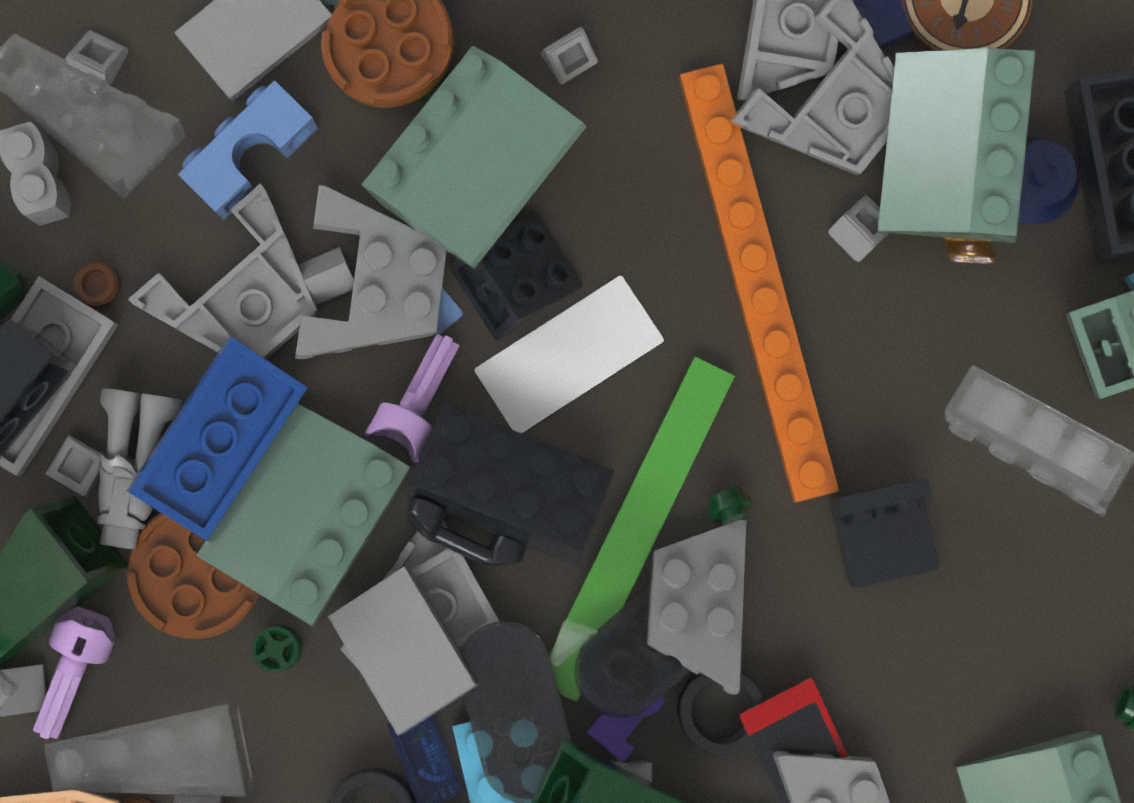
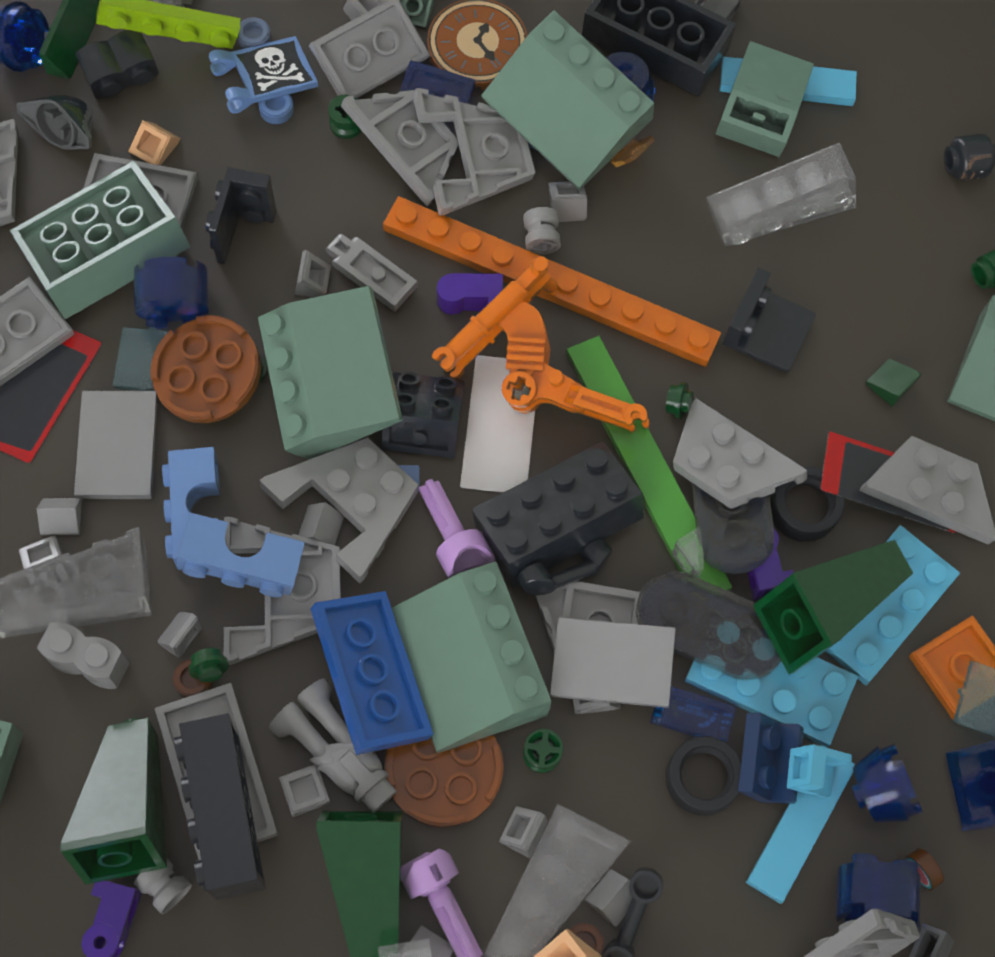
camera: 55 degrees left, 15 degrees down
(109, 290) = (208, 665): none -> dark green plate
(126, 237) = (180, 633): none -> light grey slope
(147, 36) = (59, 516): none -> light grey slope
(193, 688) = (524, 831): none -> light grey slope
(199, 199) = (206, 553): none -> medium blue arch
(620, 106) = (371, 269): none -> light grey hinge
(638, 336) = (530, 354): none -> orange piece
(669, 208) = (467, 291): none -> dark purple leg
(801, 231) = (541, 228): none -> light grey wheel
(929, 697) = (893, 381): none -> dark green slope

